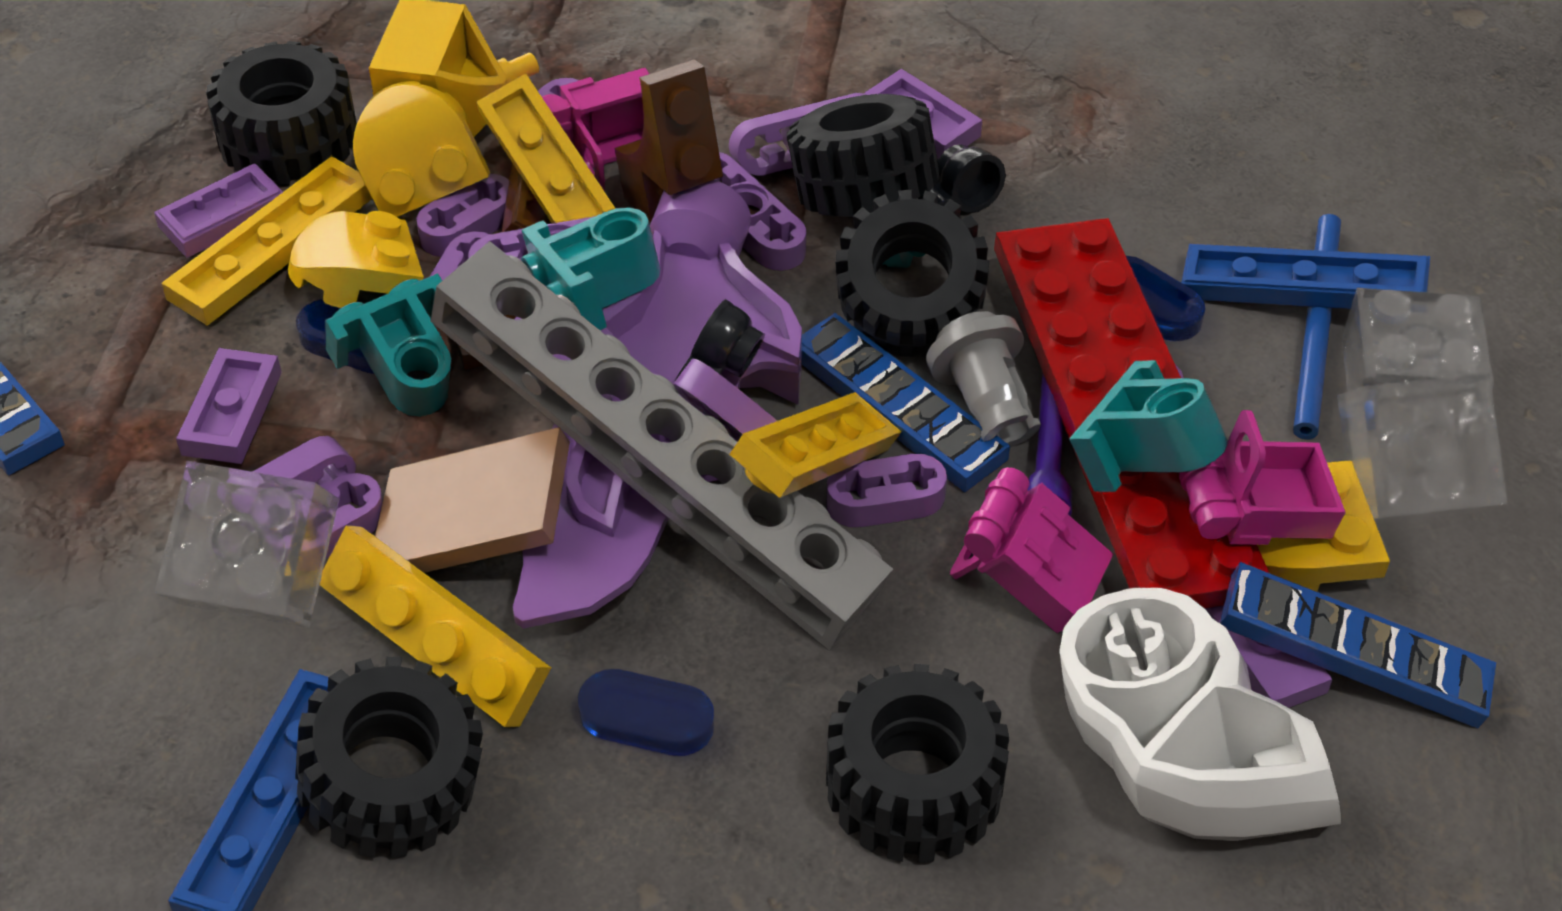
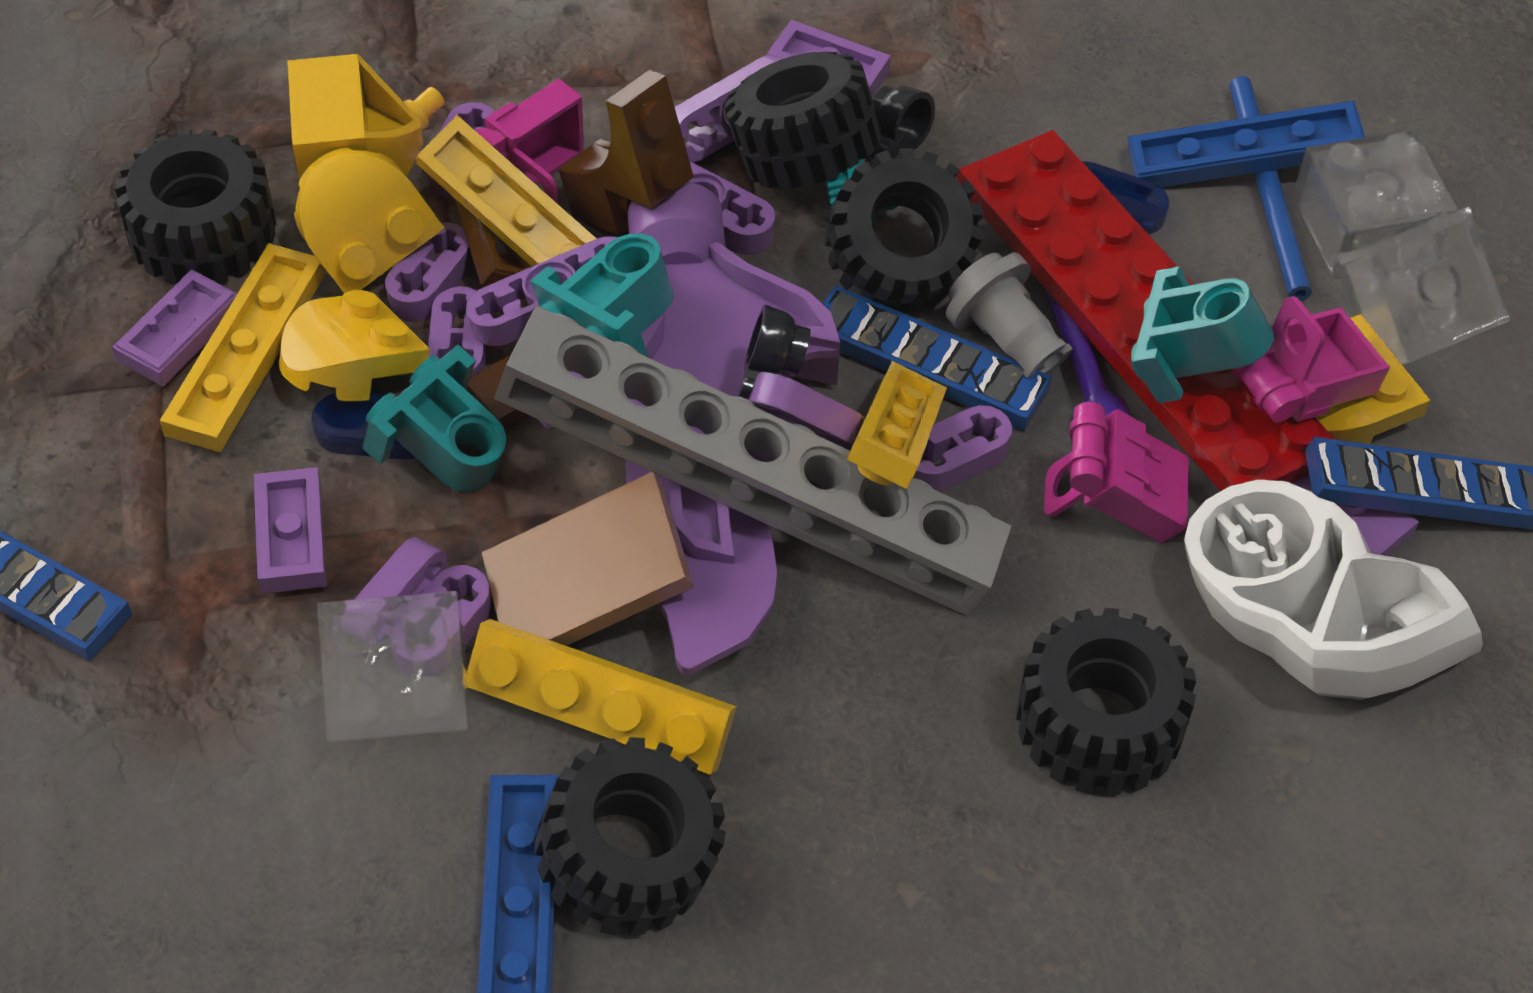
camera: 20 degrees left, 5 degrees up
(646, 712) = (833, 722): clear blue tile -> none

